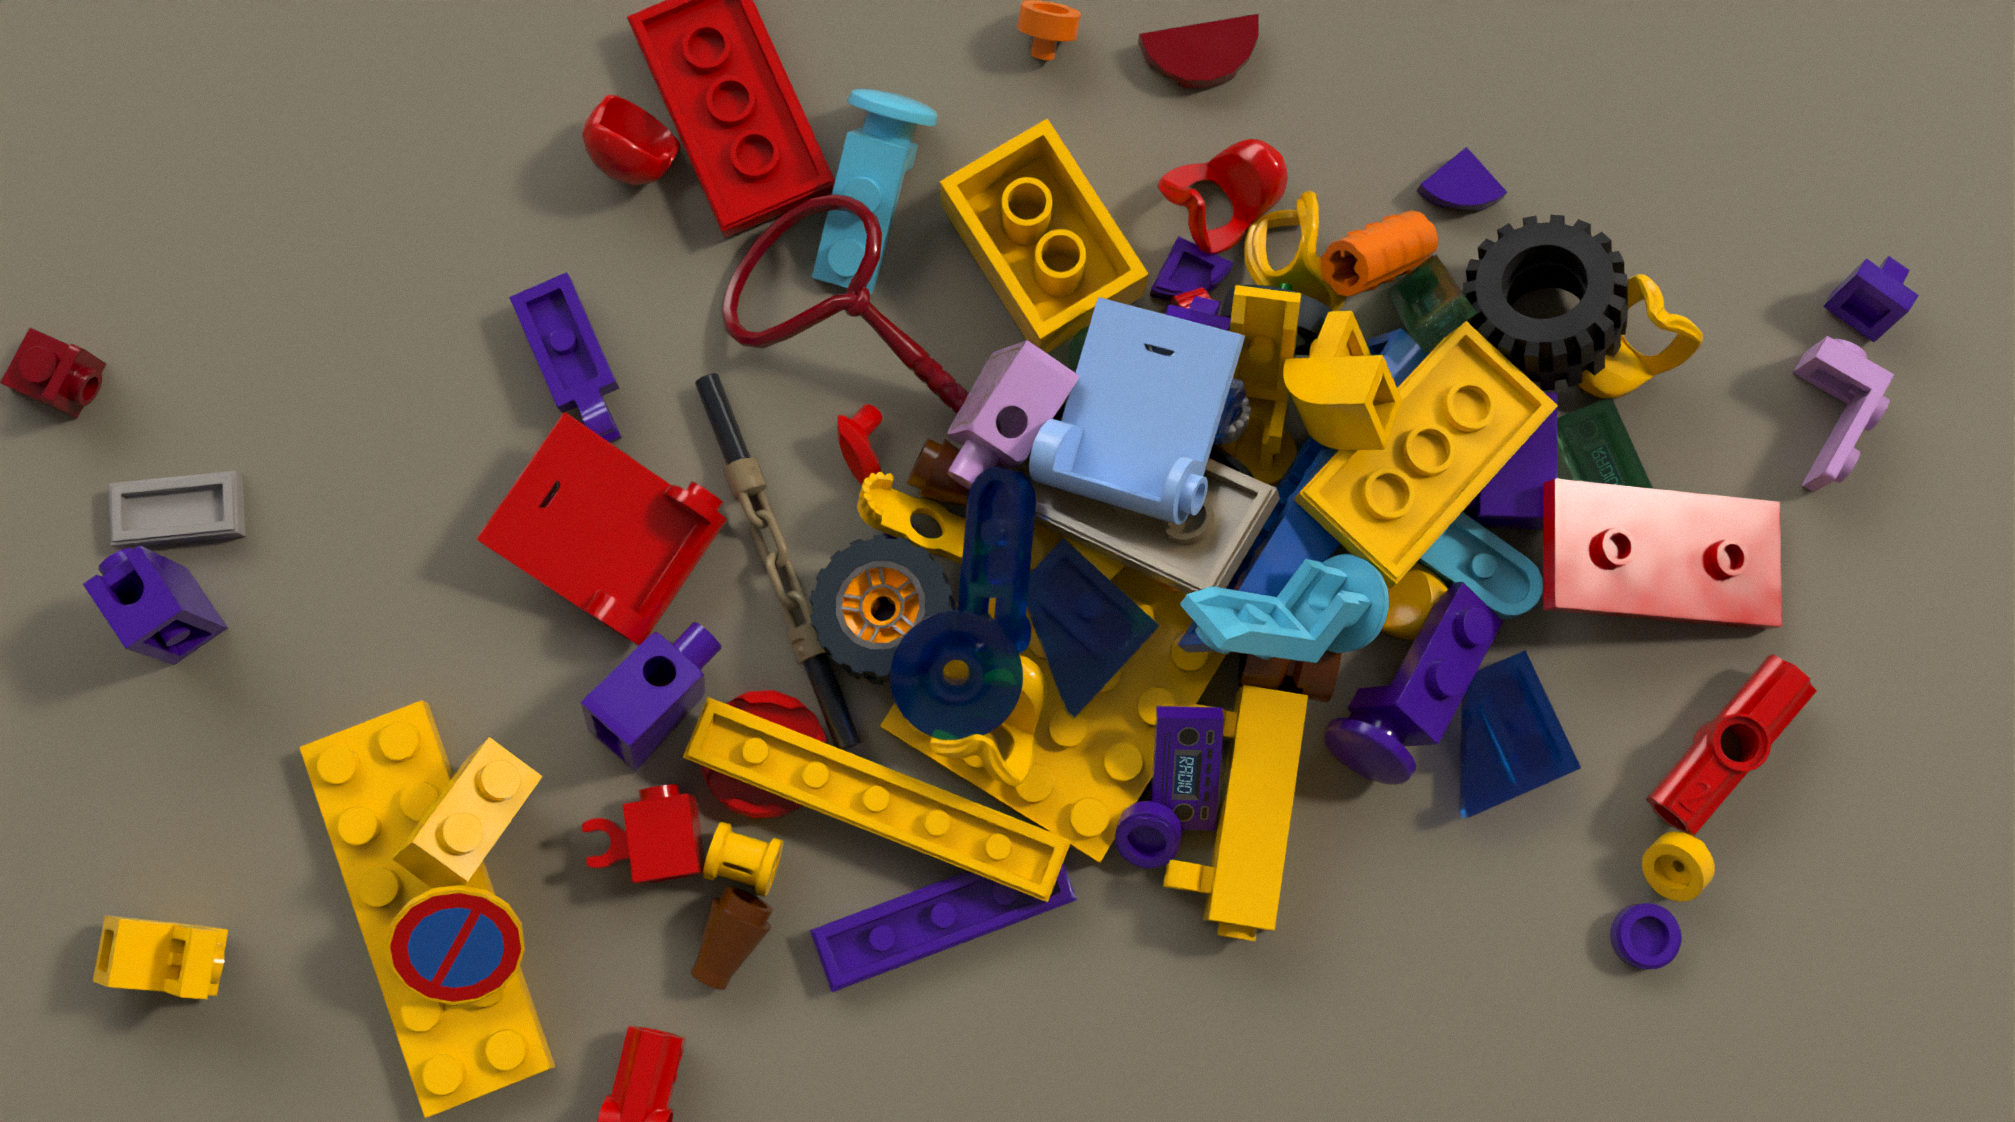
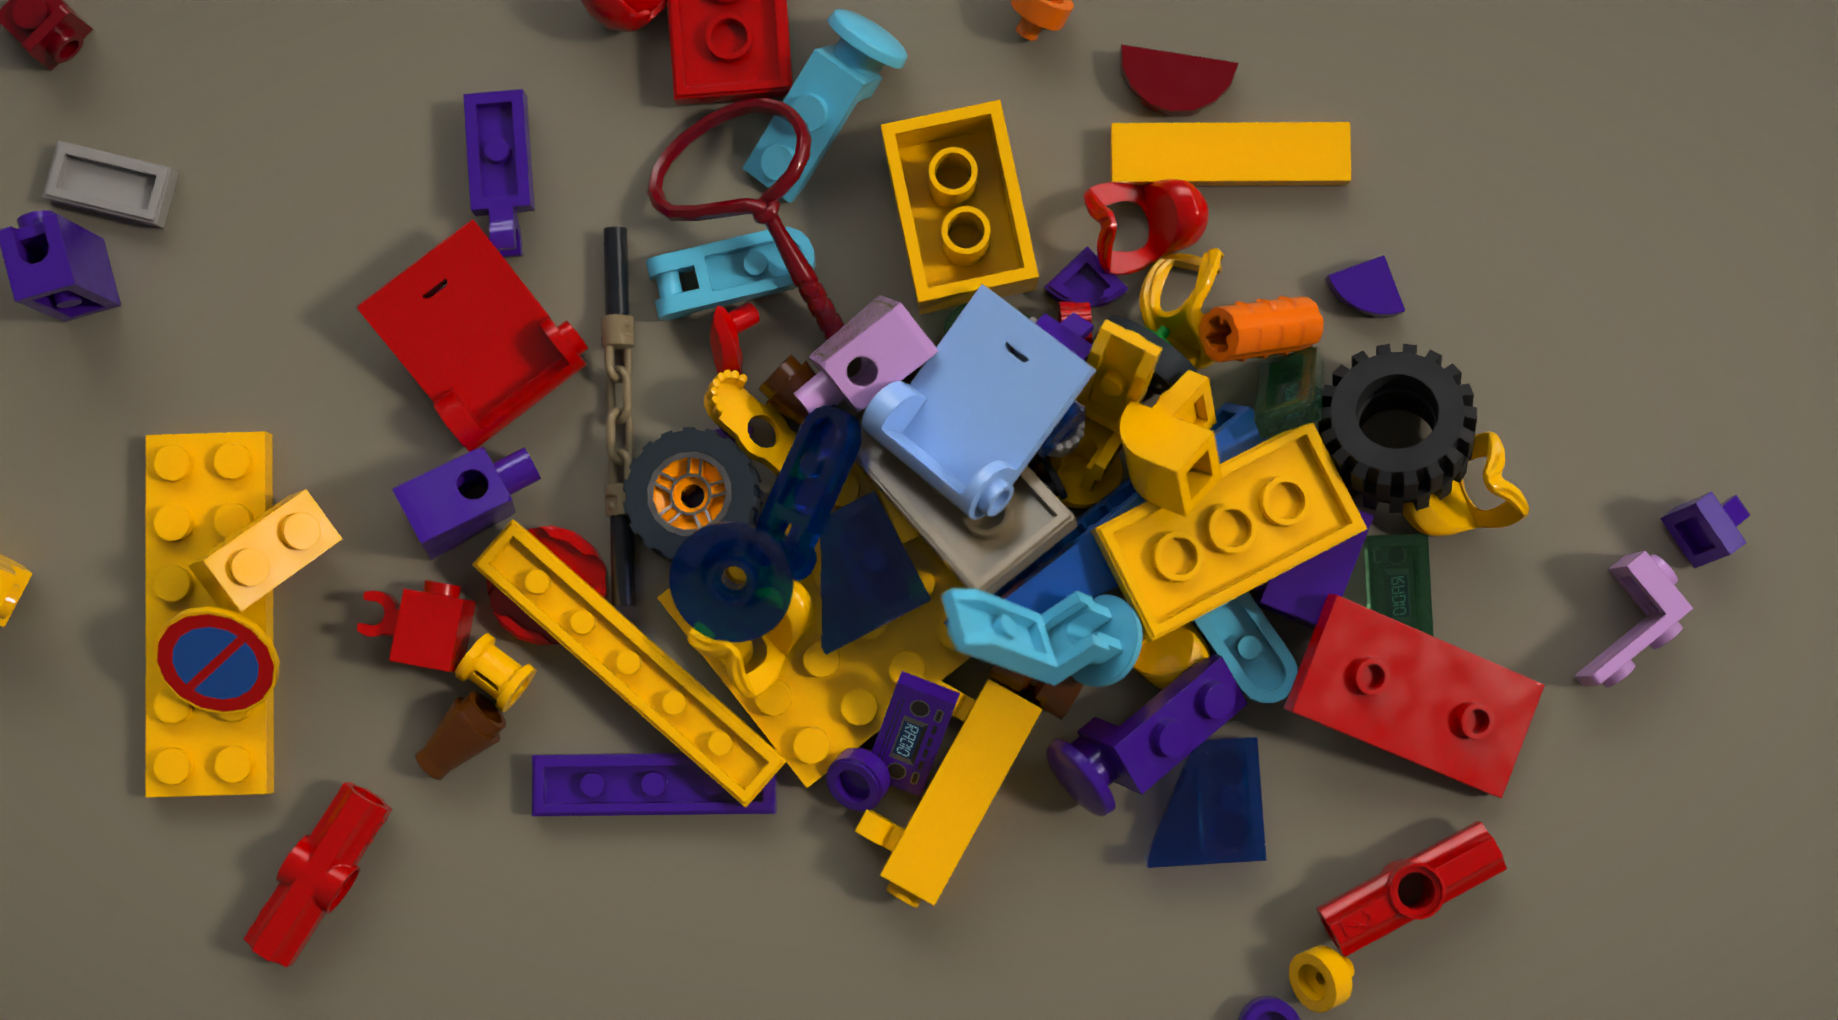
camera: 30 degrees right, 5 degrees up
(833, 383) = (725, 273): none -> medium azure plate
(1283, 101) = (1232, 153): none -> yellow tile

